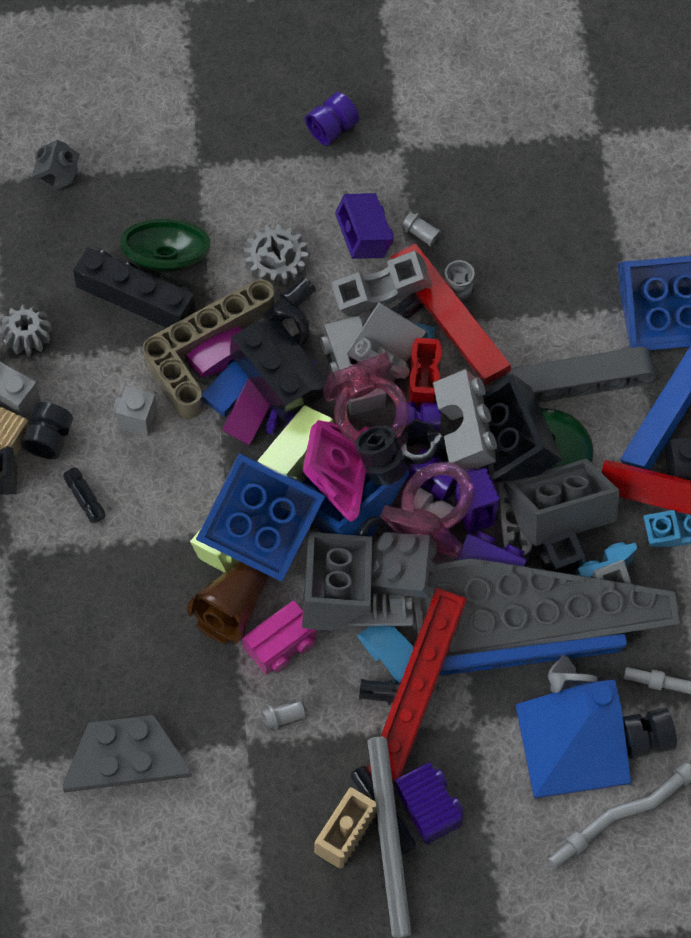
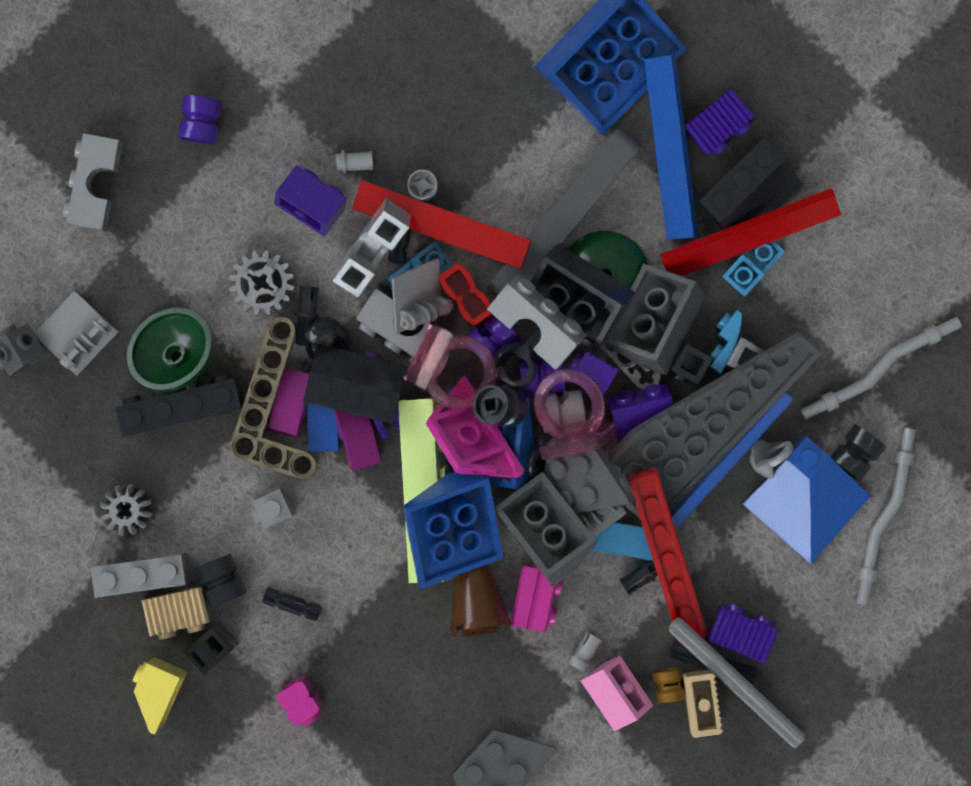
camera: 35 degrees left, 25 degrees up
(23, 559) = (300, 701): none -> dark pink brick
(107, 191) = (75, 333): none -> light grey hinge
(232, 88) = (94, 156): none -> light grey arch
(281, 762) = (617, 693): none -> bright pink brick
(329, 793) = (672, 689): none -> pearl gold wheel

